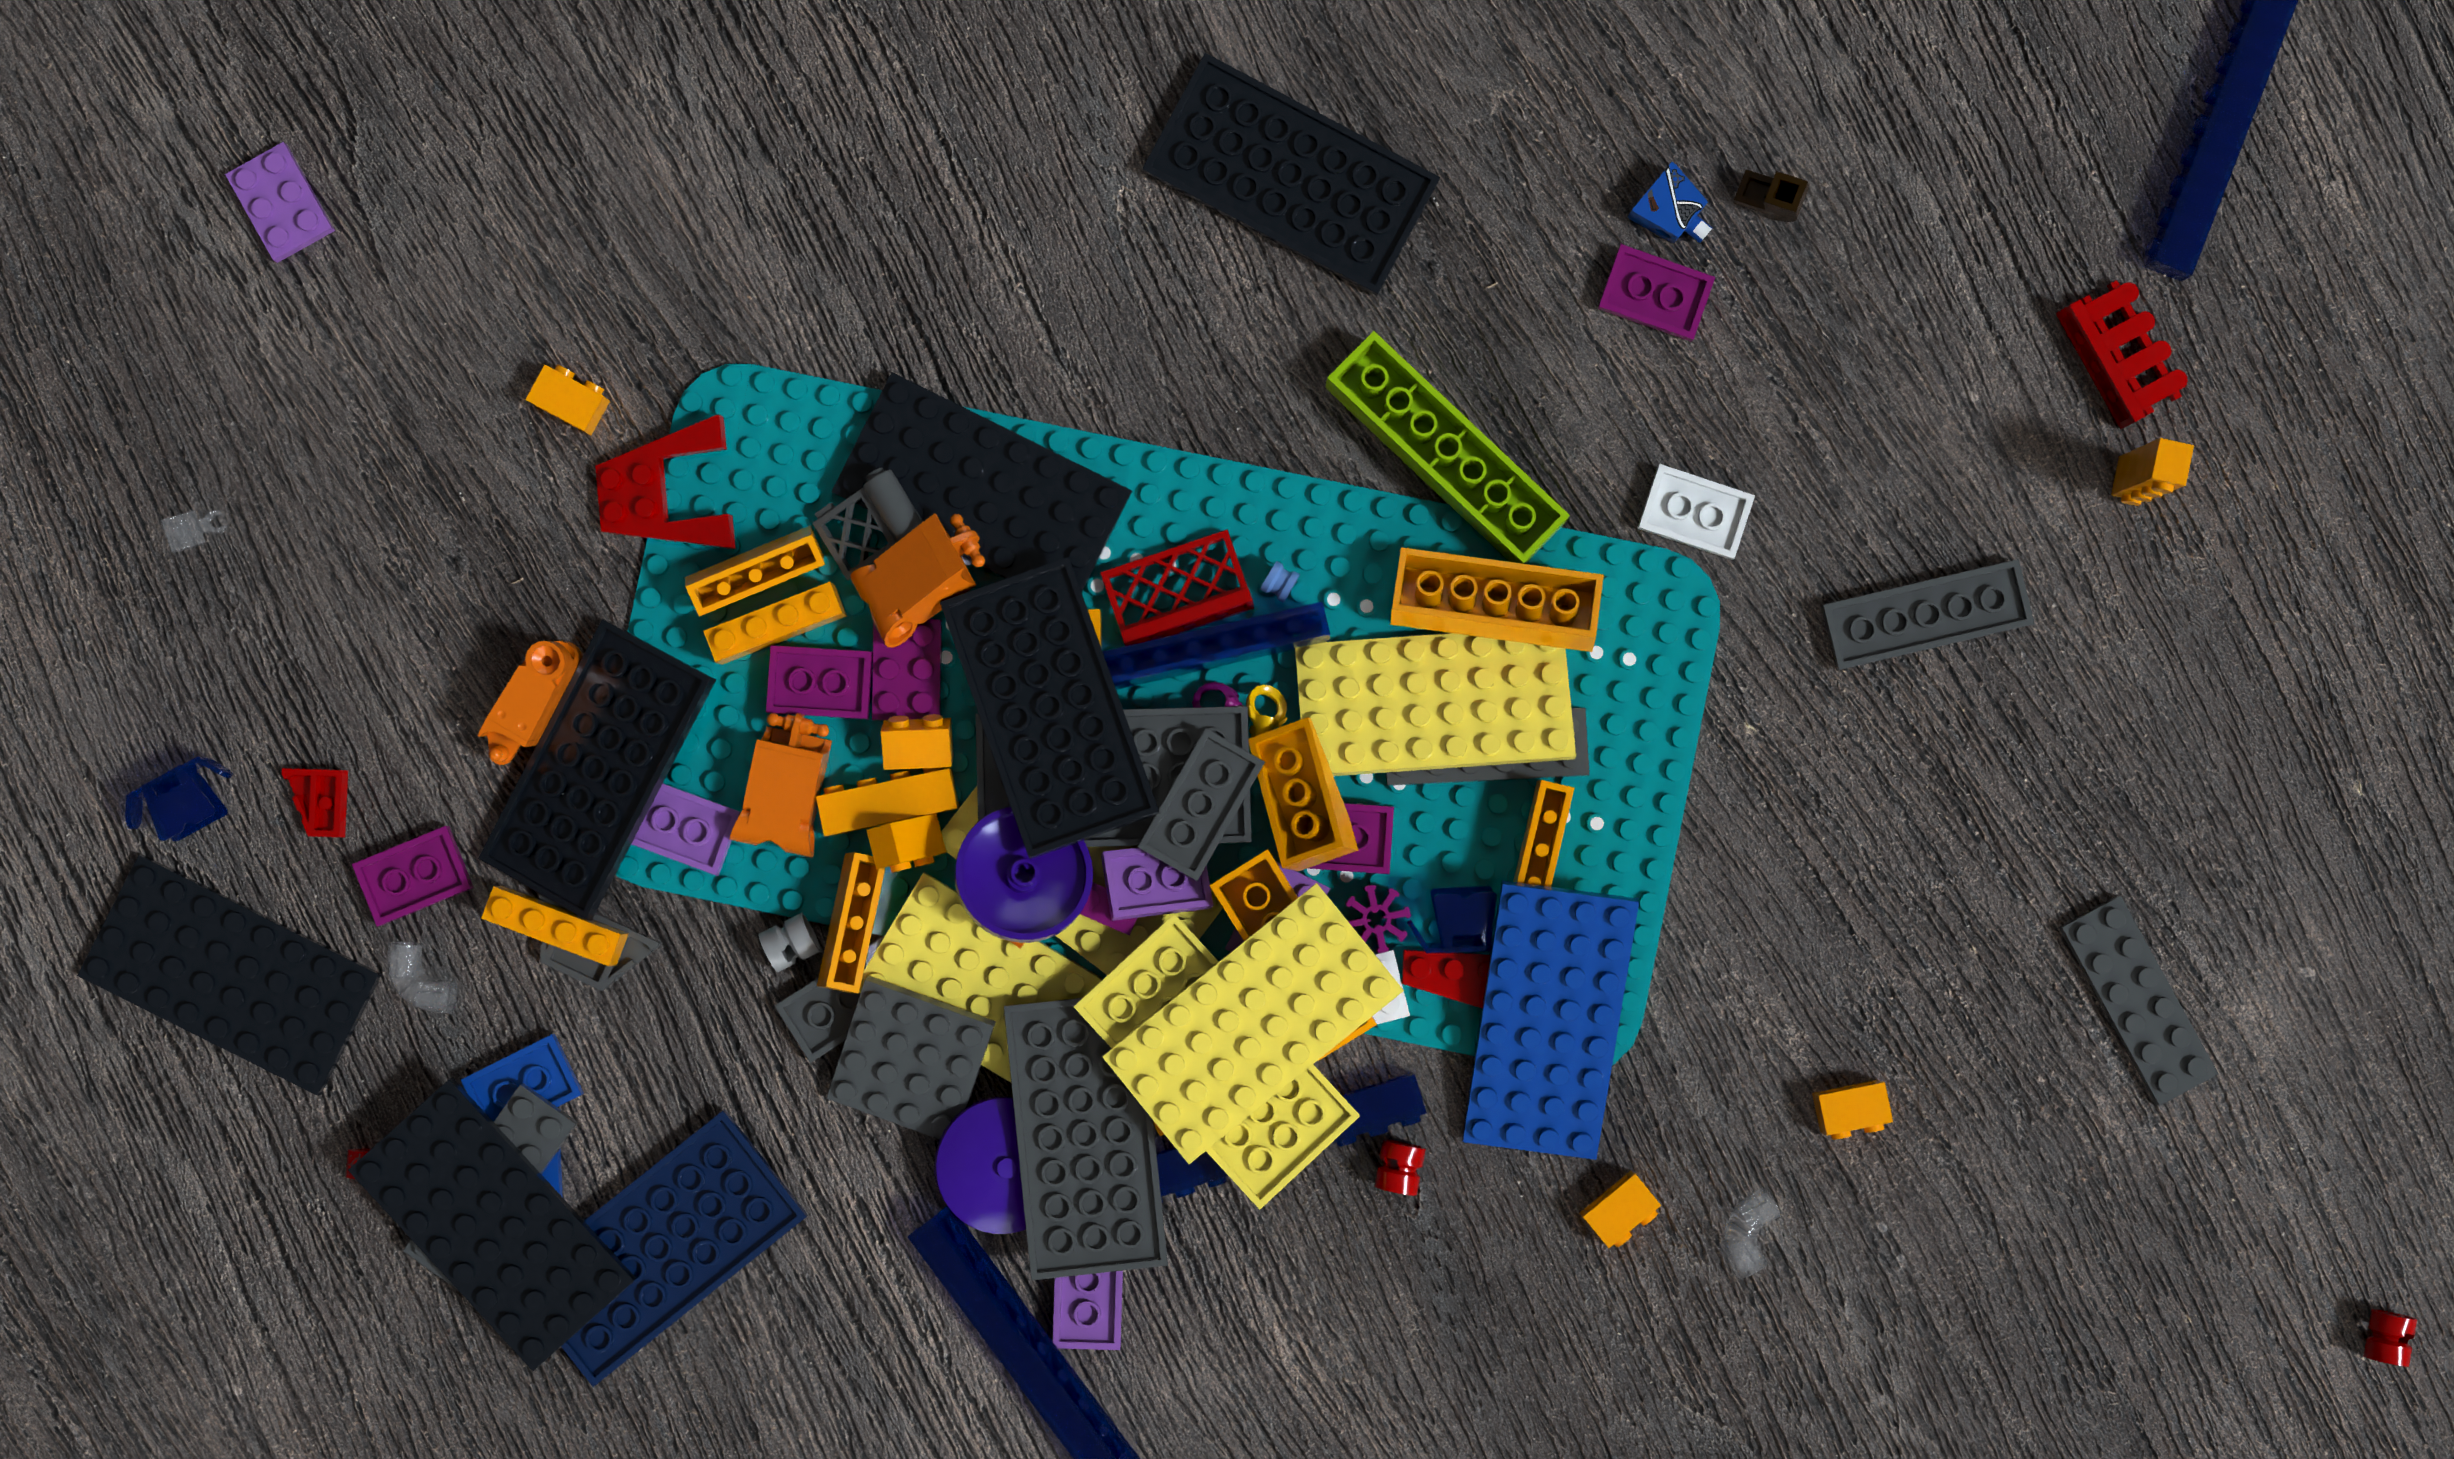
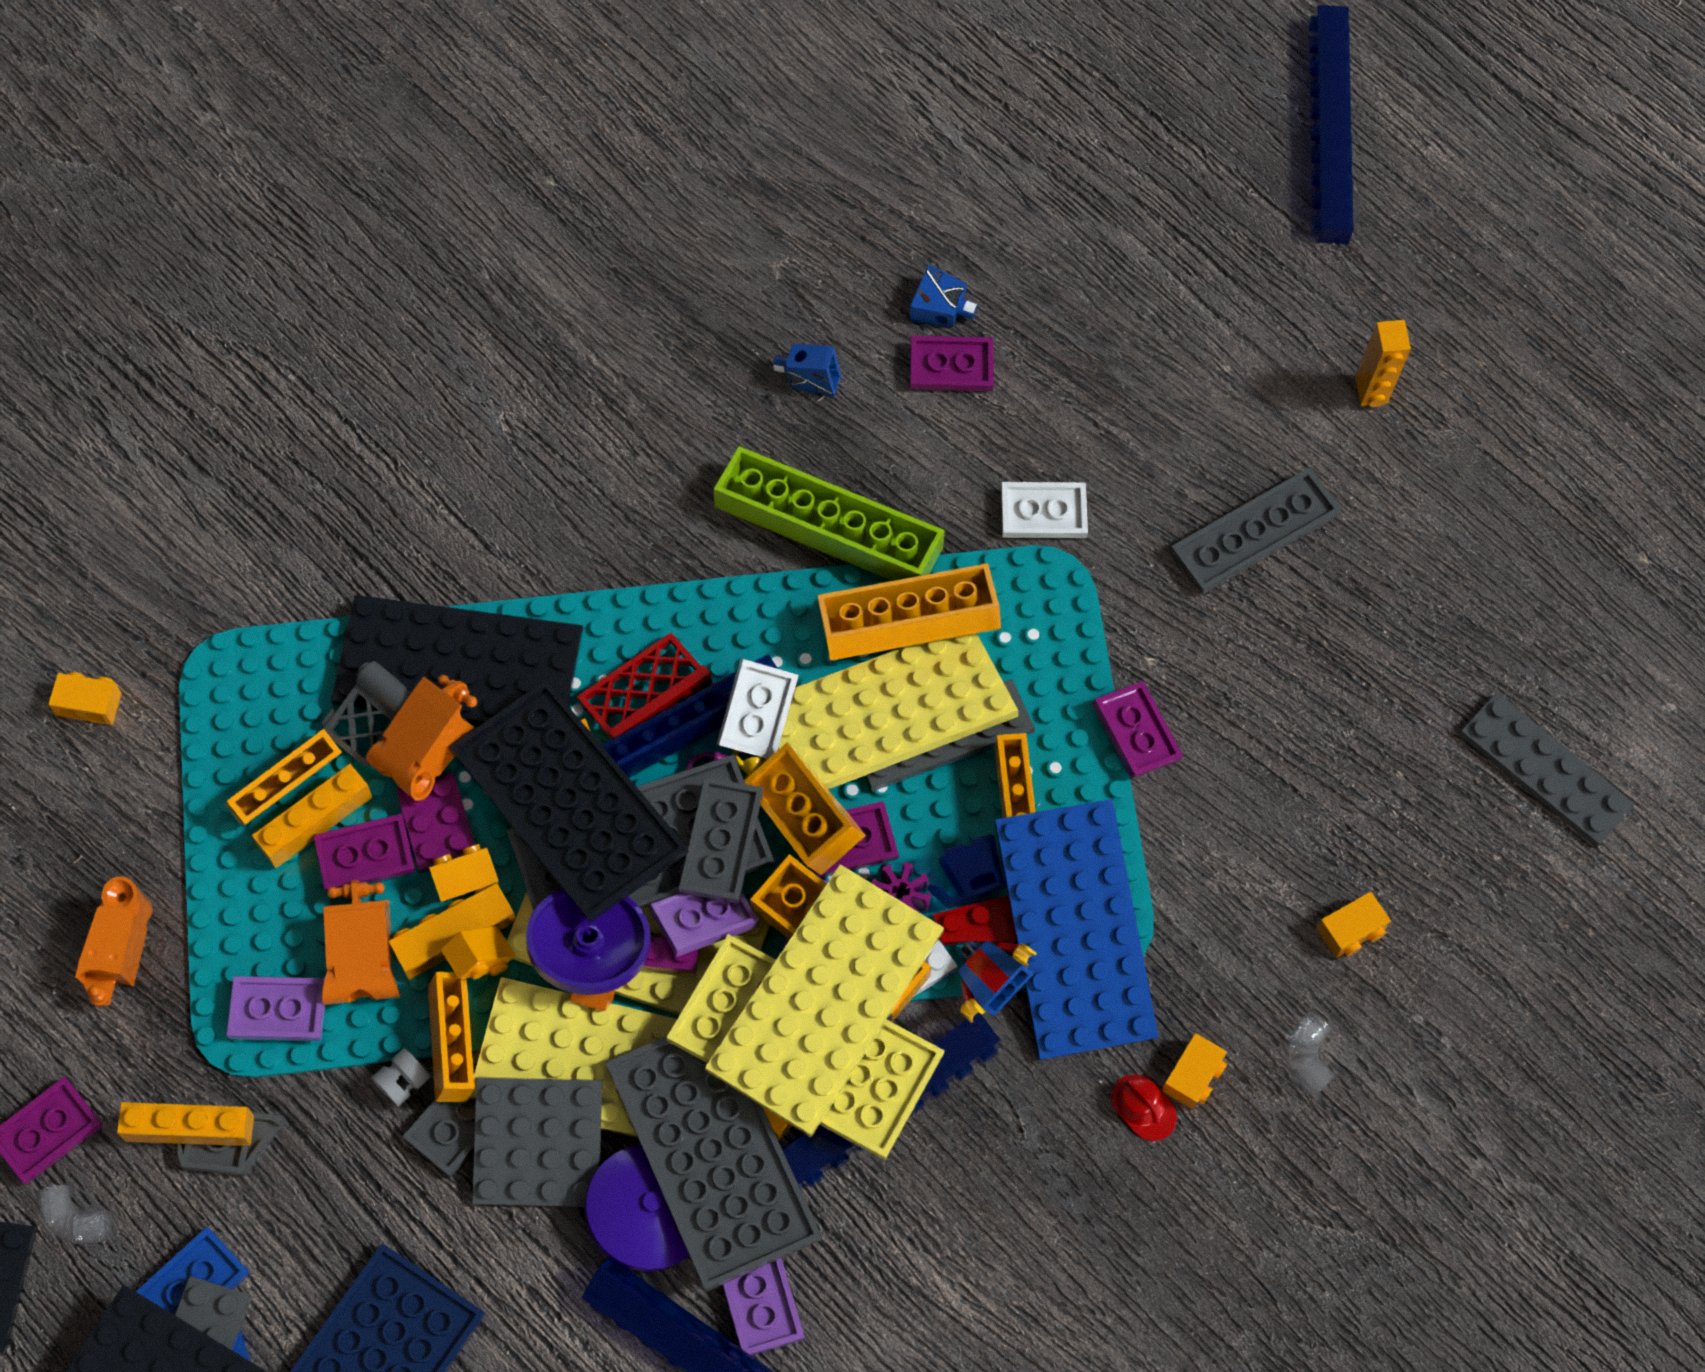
camera: 20 degrees left, 20 degrees down
(597, 769) = (188, 984): black plate -> none
(634, 490) = (161, 751): red wing -> none
(1280, 581) = (727, 656): medium blue wheel -> none
(1288, 666) = (757, 709): none -> white plate
(1291, 174) = (634, 362): black plate -> none
(1399, 1167) = (994, 1095): red wheel -> none
(1439, 1045) = (992, 975): none -> torso
(1489, 251) = (811, 368): none -> blue torso
(1553, 1225) = (1144, 1107): none -> red piece
(1702, 811) = (1137, 730): none -> magenta plate
(1776, 197) = (1018, 269): dark brown brick -> none
(2105, 362) = (1314, 312): red fence -> none

